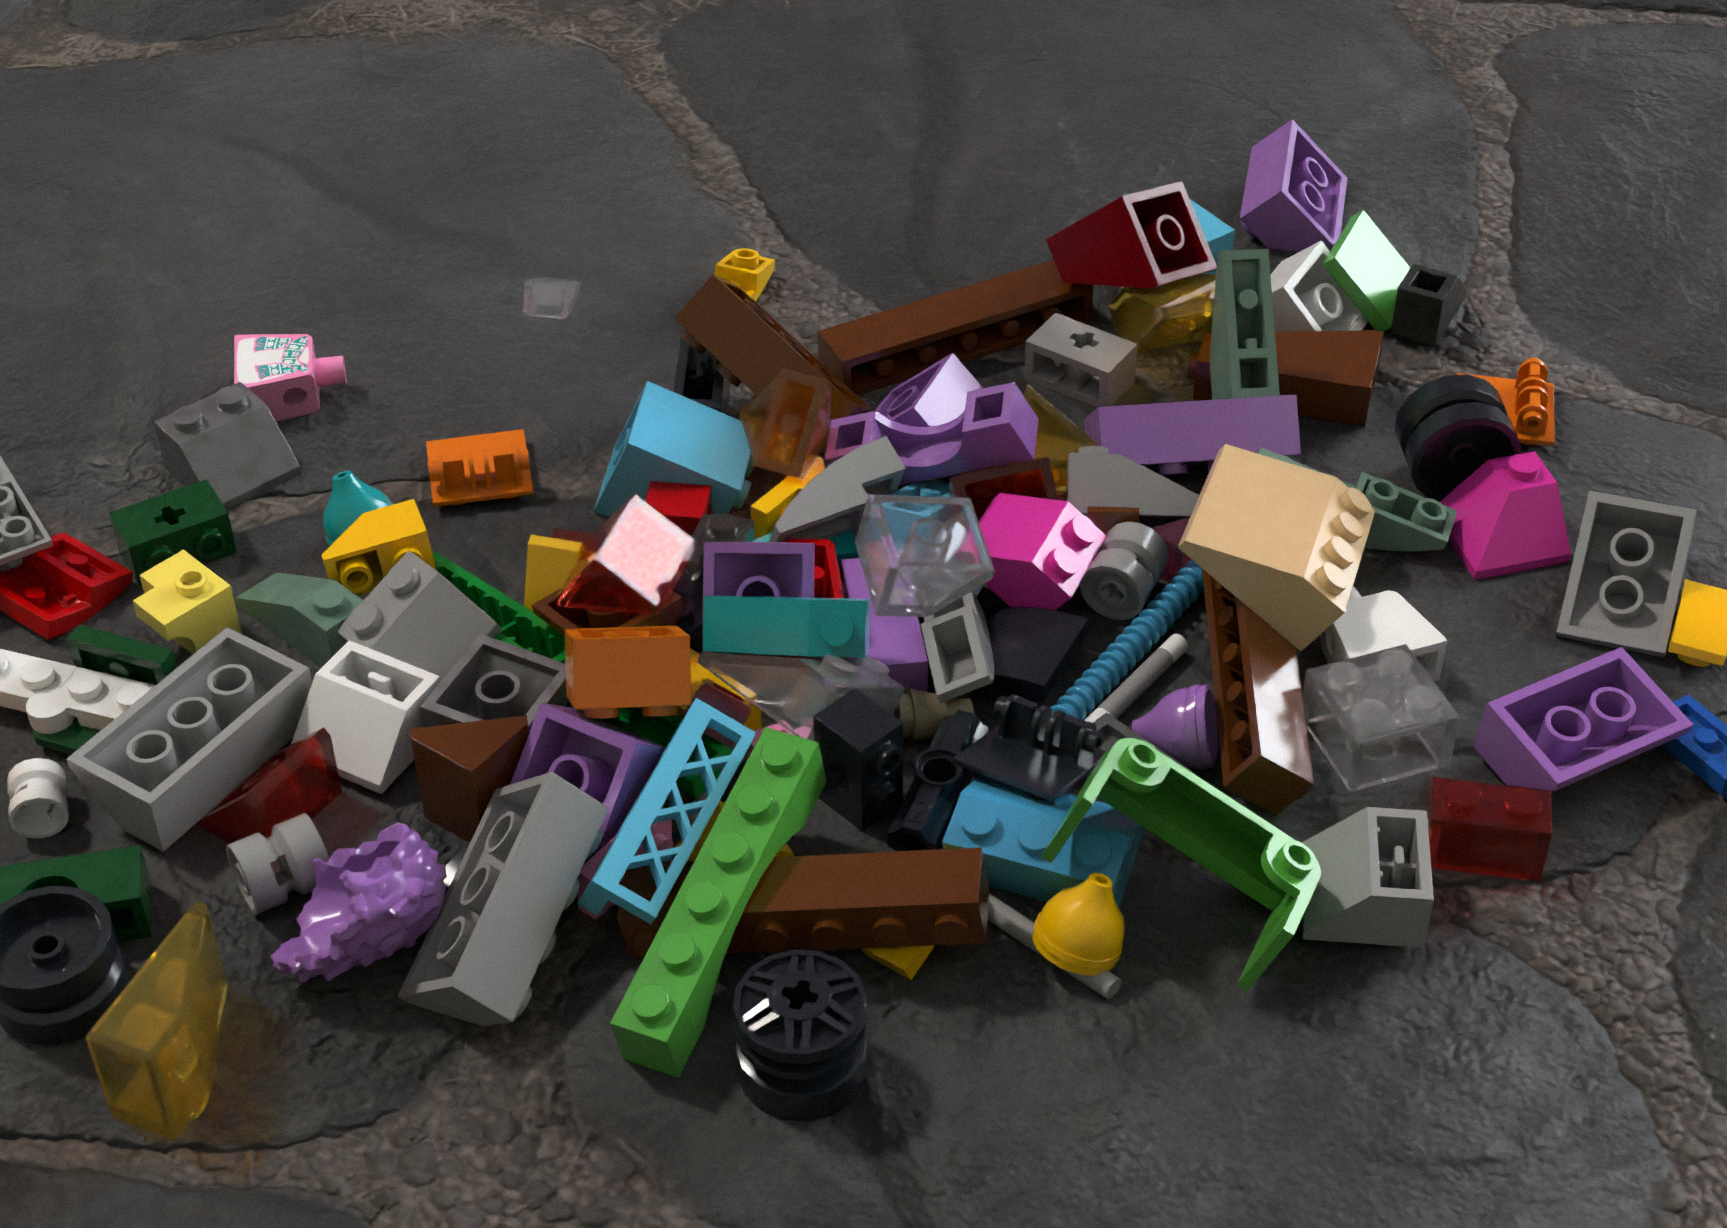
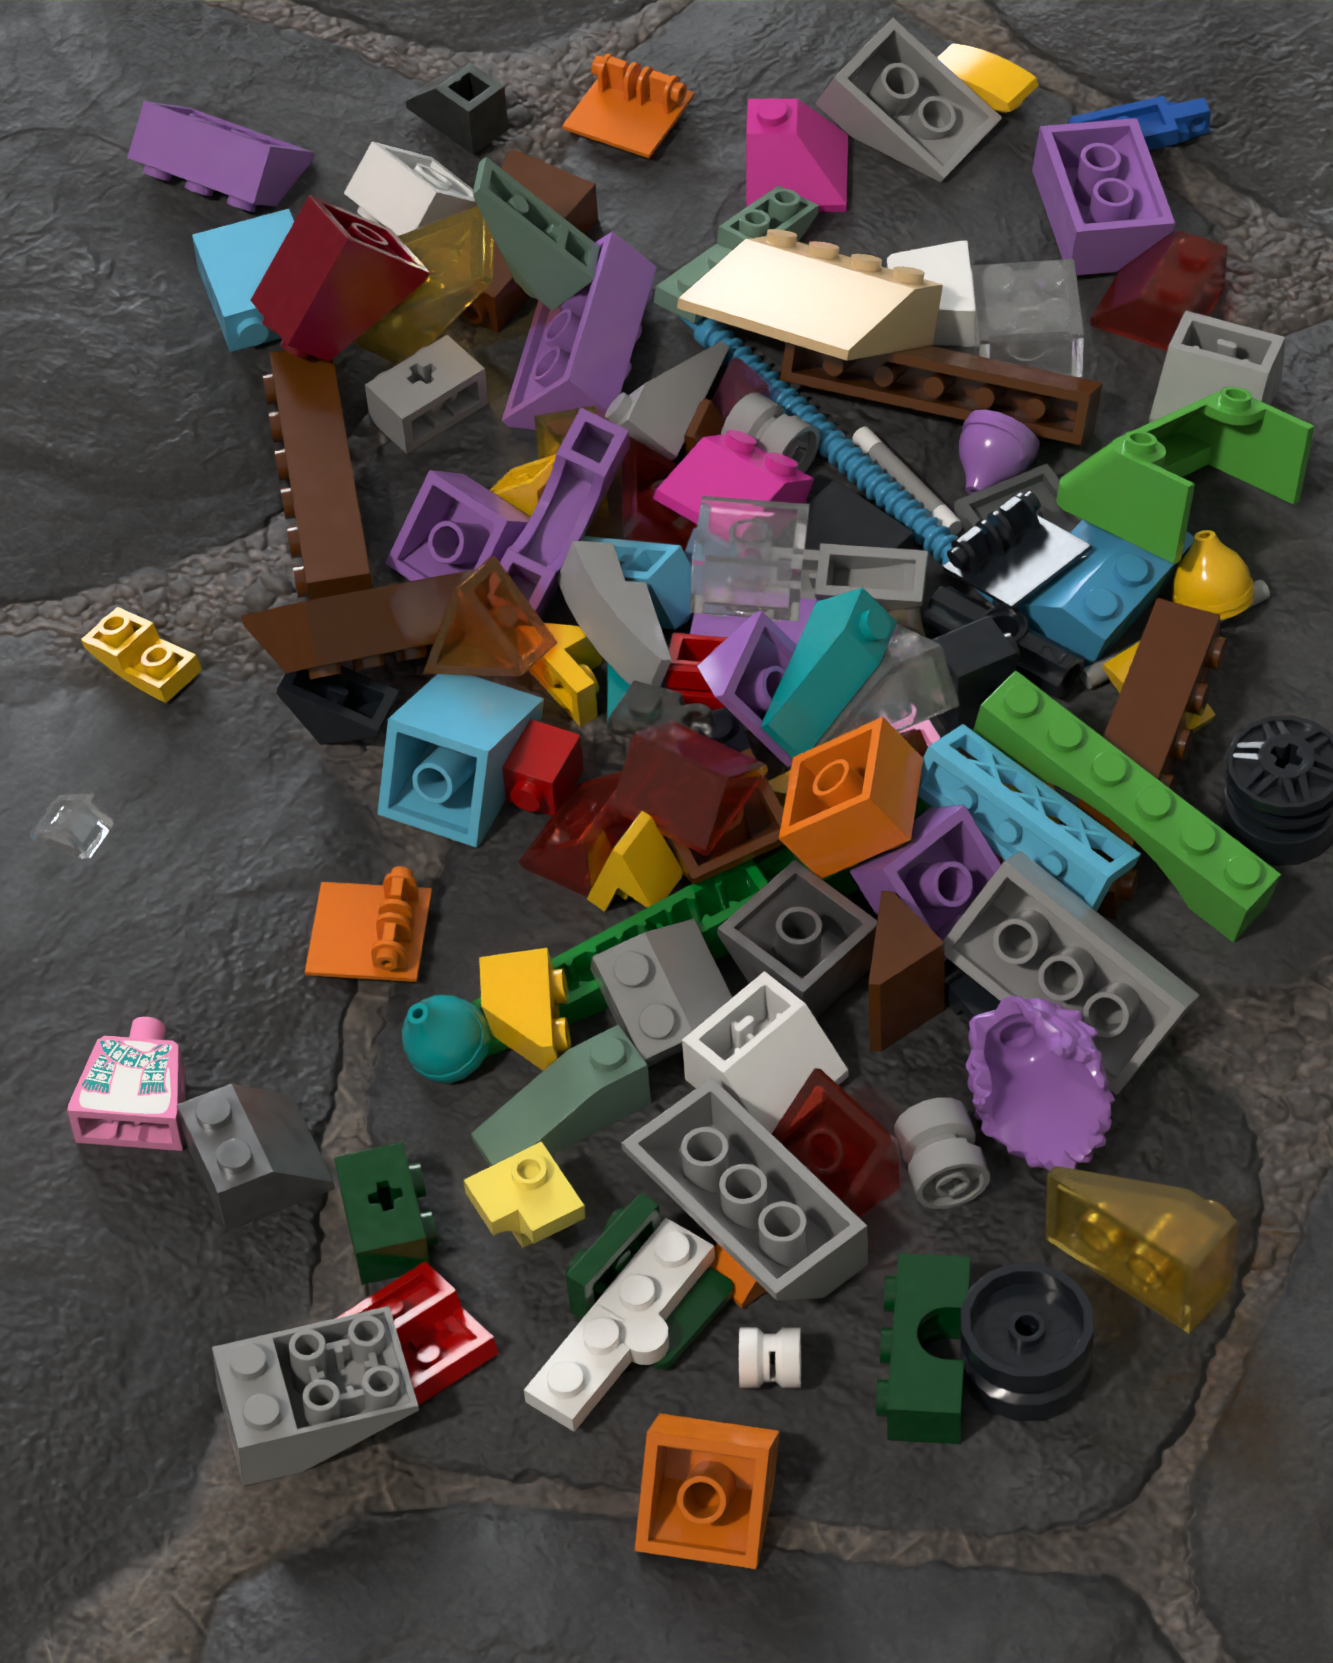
camera: 70 degrees left, 10 degrees up
(1367, 270) = (399, 130): tile -> none
(1453, 430) = (701, 146): black wheel -> none

